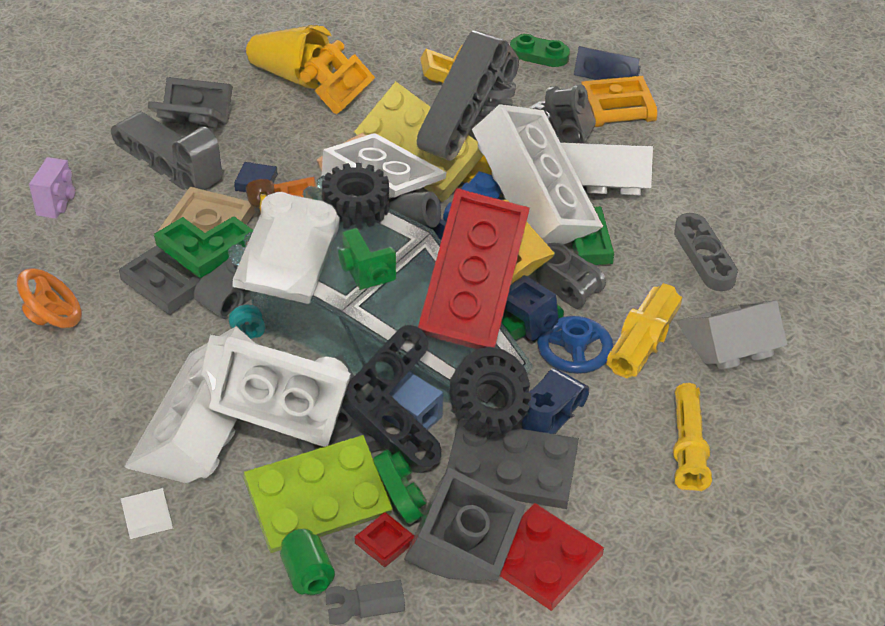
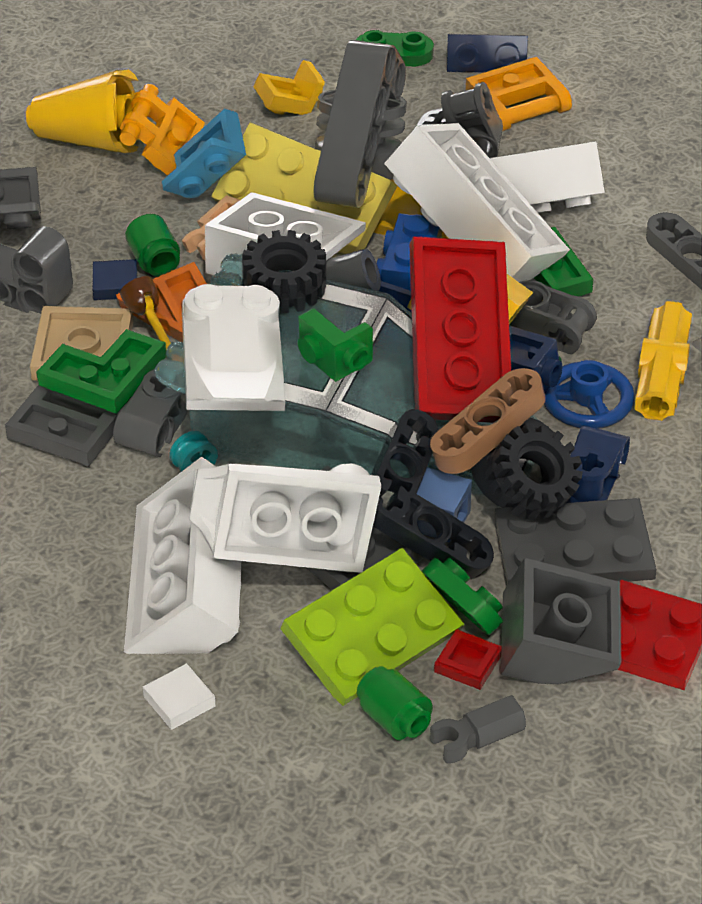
camera: 15 degrees left, 0 degrees up
(292, 157) = (153, 244): none -> green brick
(356, 101) = (207, 156): none -> dark azure bracket
(501, 334) = (465, 443): none -> medium nougat beam

